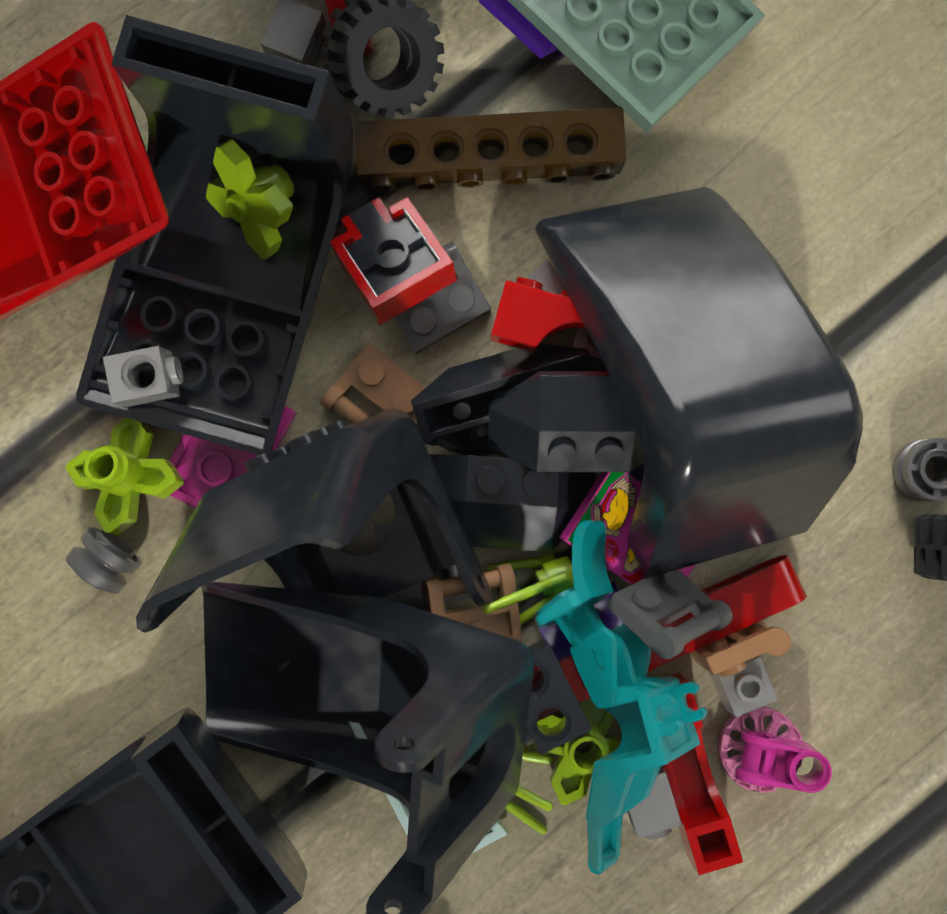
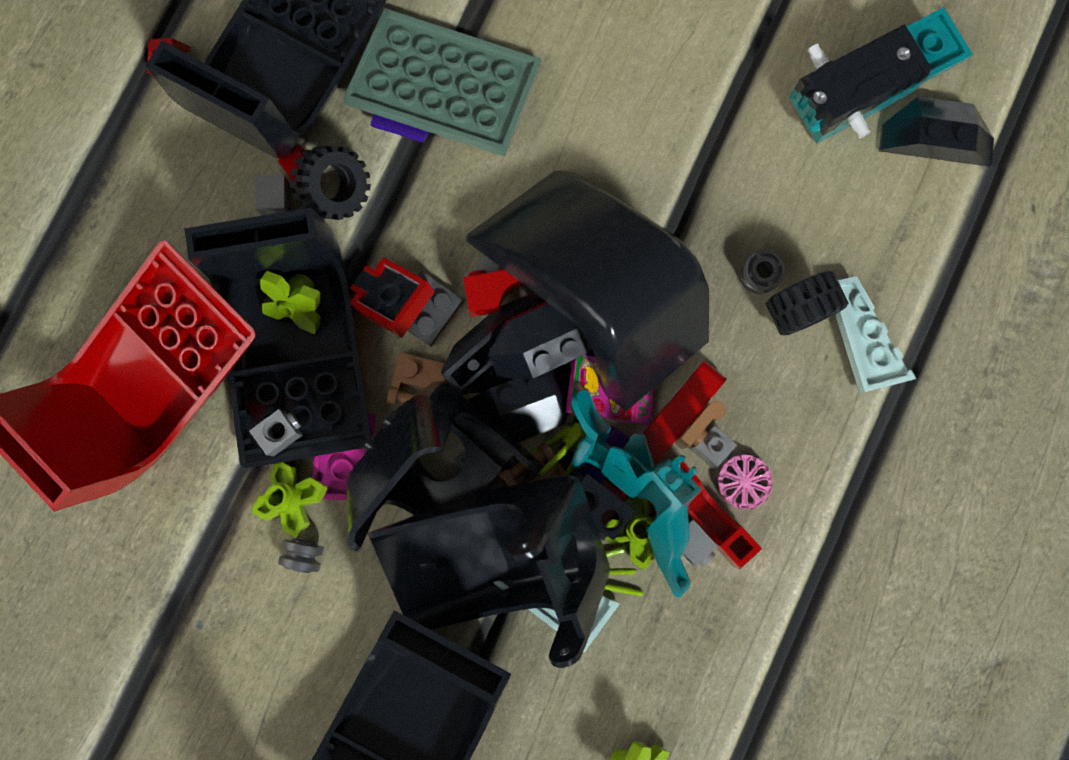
camera: 25 degrees left, 5 degrees down
(597, 128) = (425, 192): dark brown brick -> none
(663, 599) = (638, 422): dark grey plate -> none
(773, 762) = (752, 482): dark pink piece -> none

